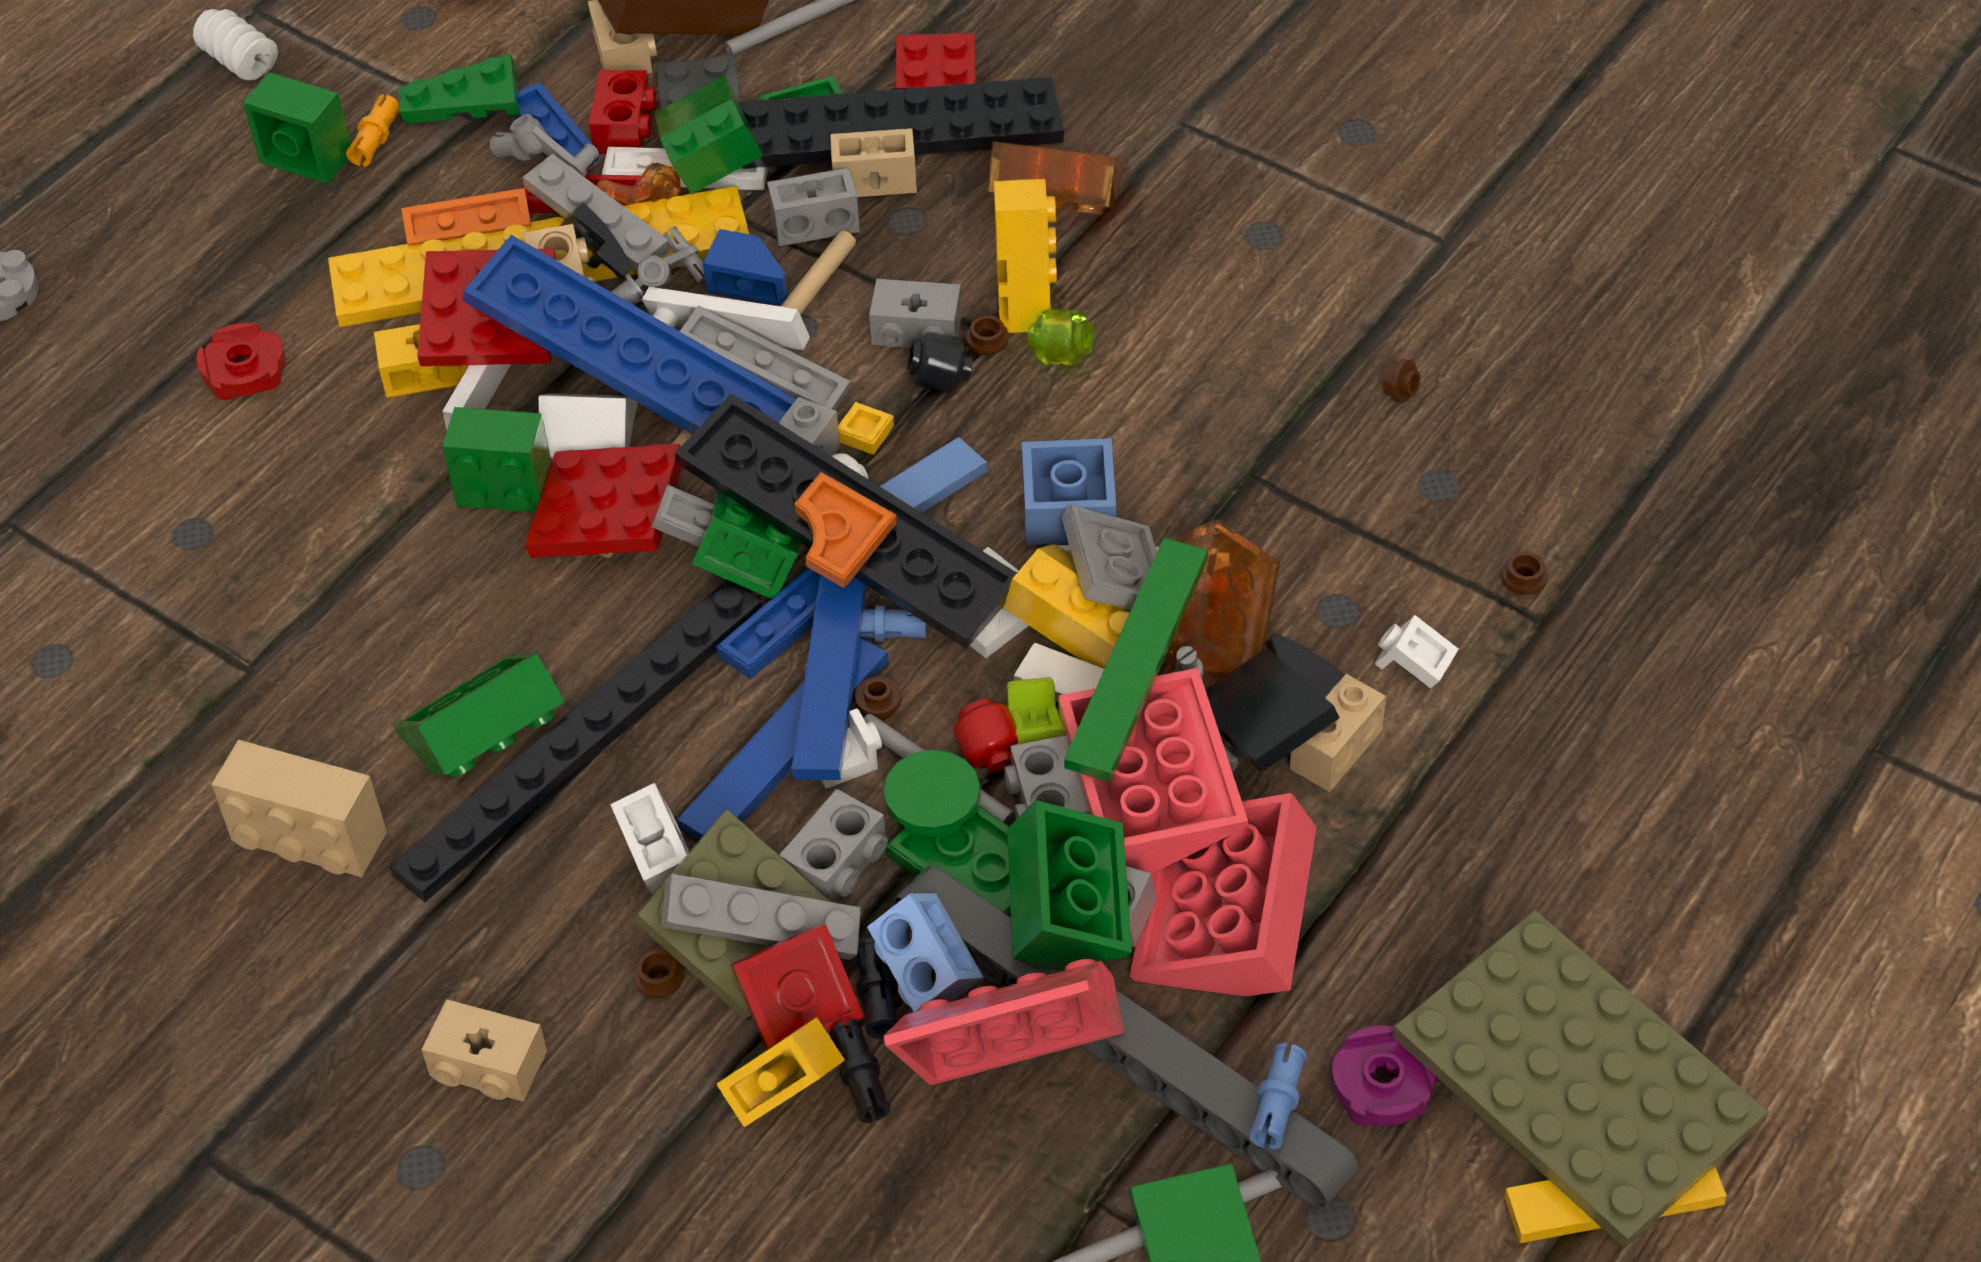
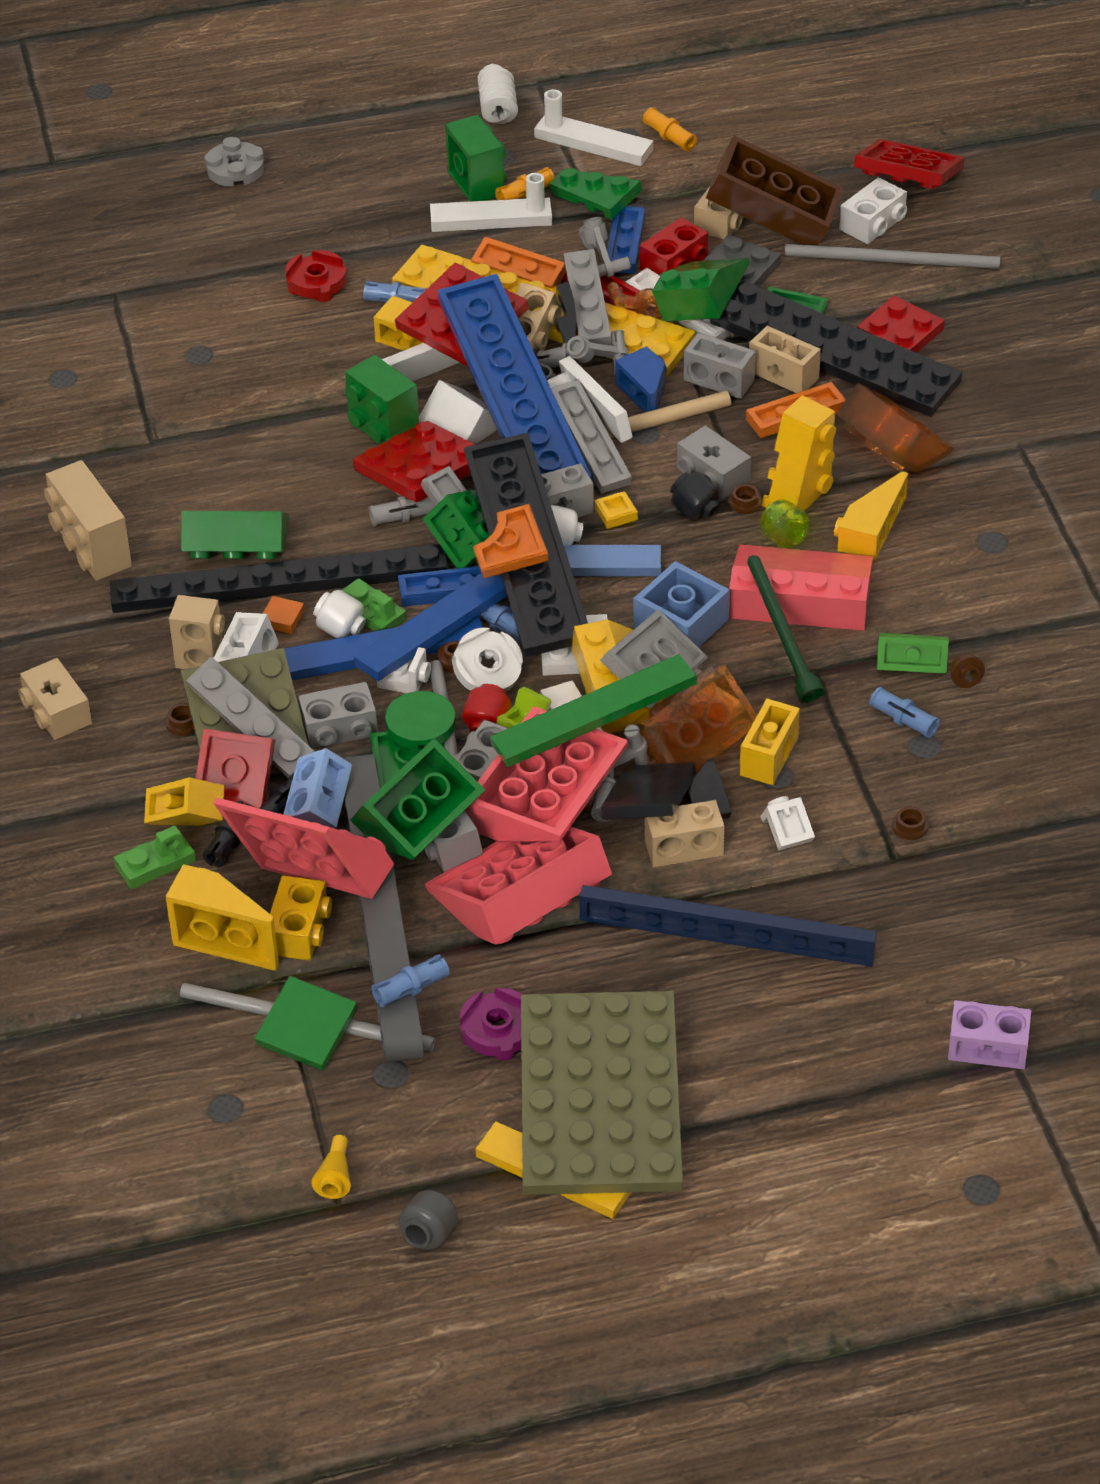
camera: 40 degrees right, 5 degrees down
(357, 330) = (383, 292): none -> medium blue pin
(369, 178) = (496, 213): none -> white piece
(384, 39) = (589, 137): none -> white piece
(584, 859) = (195, 630): none -> tan brick
(632, 772) = (284, 614): none -> orange tile
(636, 570) = (380, 513): none -> light grey pin
(707, 732) = (339, 614): none -> white head
(721, 702) = (378, 607): none -> bright green hinge
(805, 1160) = (154, 858): none -> bright green hinge
(917, 698) = (490, 644): none -> white plate
(933, 211) = (767, 417): none -> orange plate
(986, 1175) = (220, 919): none -> yellow slope
(1040, 1117) = (299, 916): none -> yellow brick
(1142, 286) = (871, 518): none -> yellow slope
(1148, 389) = (809, 585): none -> coral slope
(1270, 491) = (807, 686): none -> dark green piece
(1315, 576) = (769, 741): none -> yellow brick
(1334, 395) = (912, 653): none -> bright green hinge
(1419, 461) = (886, 701): none -> medium blue pin
(1482, 804) = (728, 925): none -> dark blue plate
(1843, 740) = (989, 1034): none -> lavender brick

